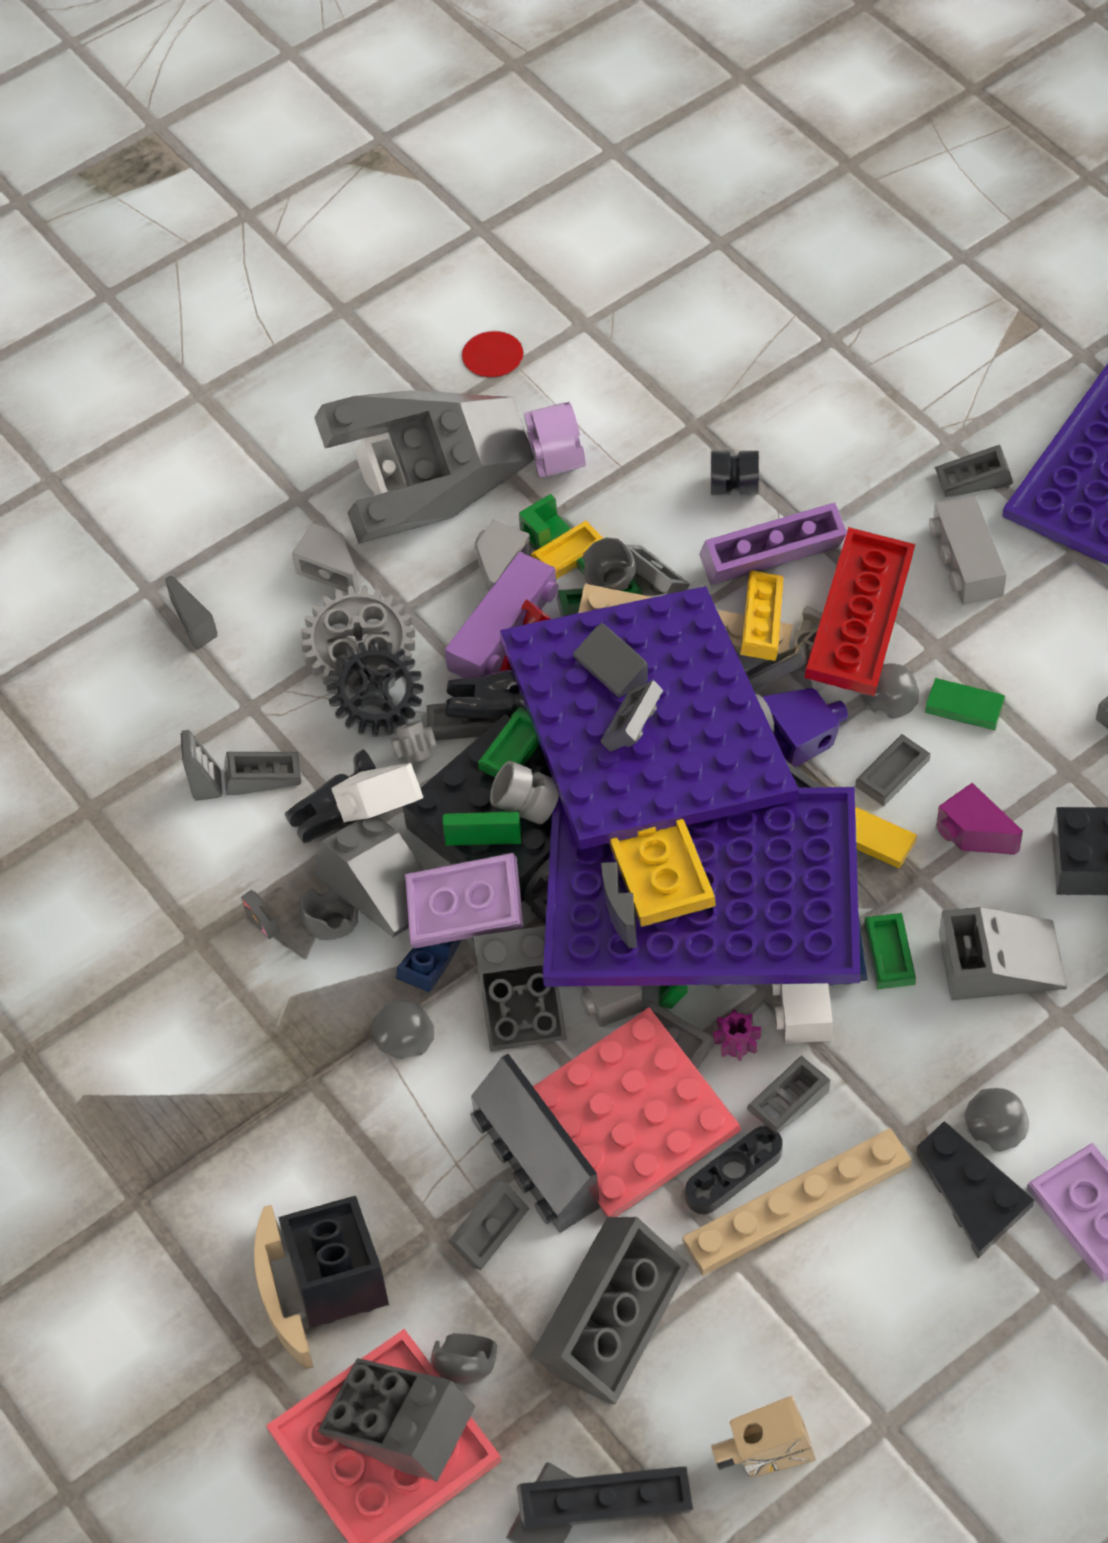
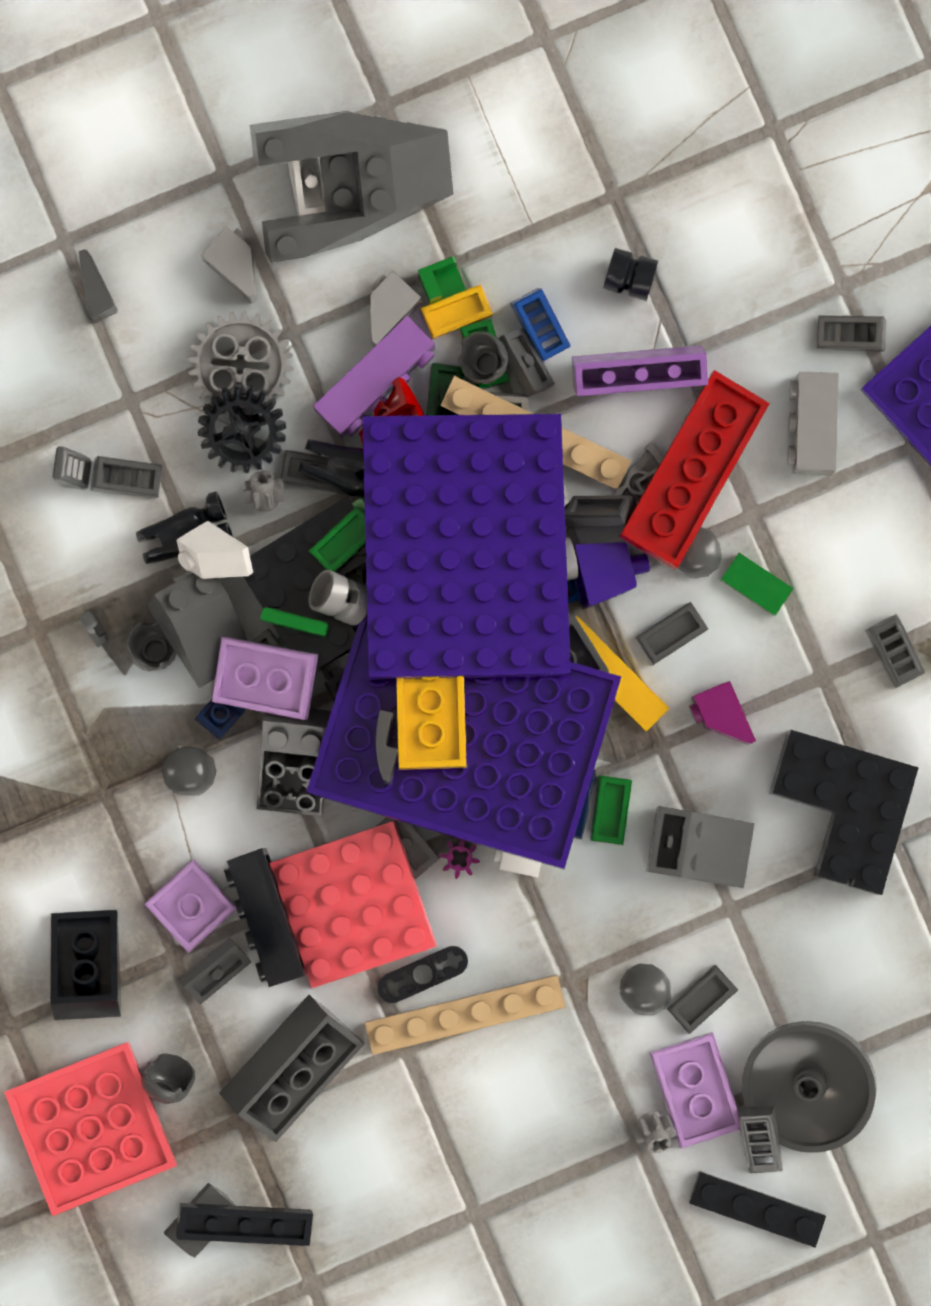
camera: 15 degrees right, 30 degrees up
(268, 1248) = (38, 1021): tan slope -> none
(398, 1417) = (103, 1120): dark grey slope -> none
(442, 1169) = (191, 906): none -> lavender tile
(492, 353) = (447, 49): red sticker -> none
(555, 439) = (474, 191): lavender brick -> none
(612, 661) = (447, 493): dark grey slope -> none
(631, 716) = (447, 565): dark grey plate -> none
(658, 524) = (539, 296): none -> blue slope
(762, 615) = (604, 451): yellow tile -> none
(766, 1440) = (391, 1213): tan torso -> none
(798, 1070) = (509, 914): dark grey slope -> none
(977, 1191) = (606, 1042): black wing -> none
(1065, 1114) = (702, 999): none -> dark grey tile
(1066, 1262) = (654, 1132): none -> light grey gear

